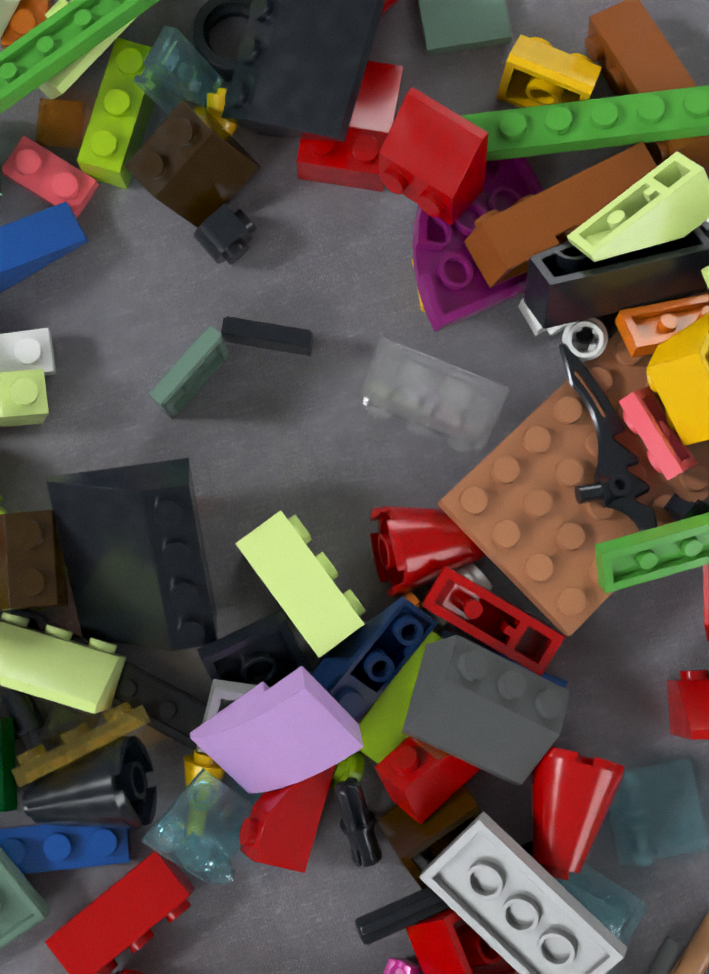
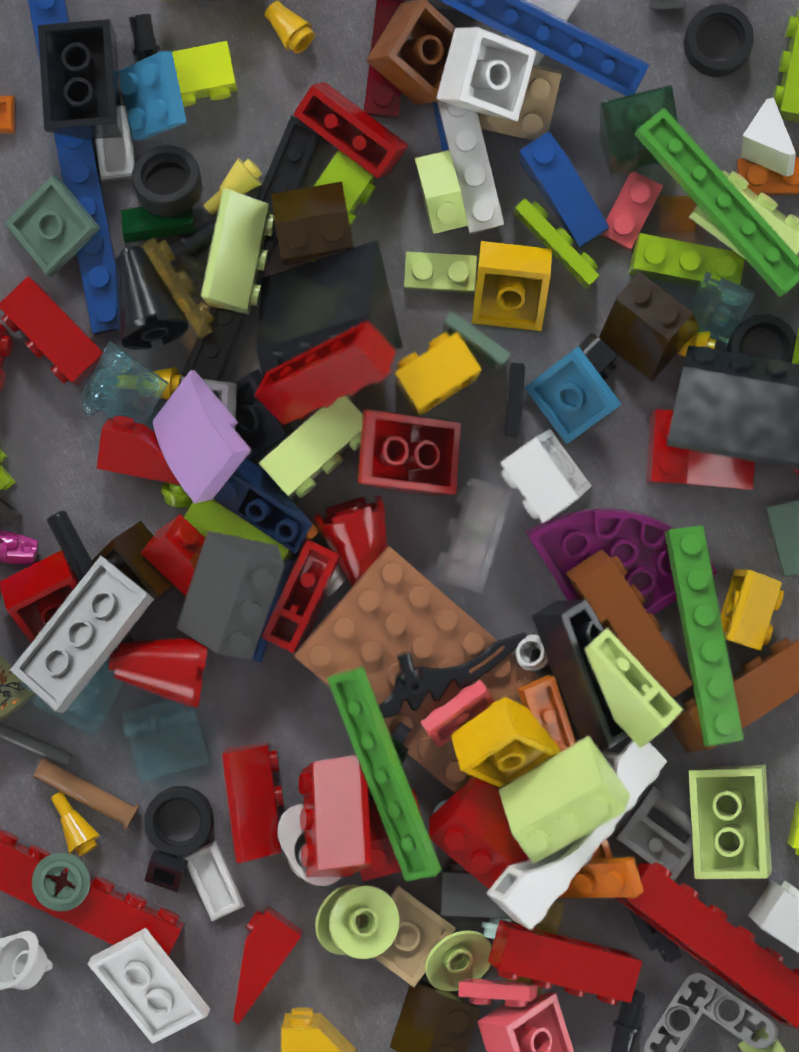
camera: 85 degrees right, 5 degrees up
(79, 267) = (558, 240): none -> lime plate
(99, 414) = (440, 272): none -> yellowish green plate
(125, 325) = (511, 285): none -> yellow slope
(211, 555) = (326, 373): none -> red brick
(221, 411) = (436, 373): none -> yellow brick
(269, 262) = (572, 395): none -> dark azure plate
(323, 466) = (409, 453): none -> red slope
(358, 823) = (137, 506): black axle -> none
(370, 299) = (545, 476): none -> white slope
(434, 157) = (659, 517): red slope -> none

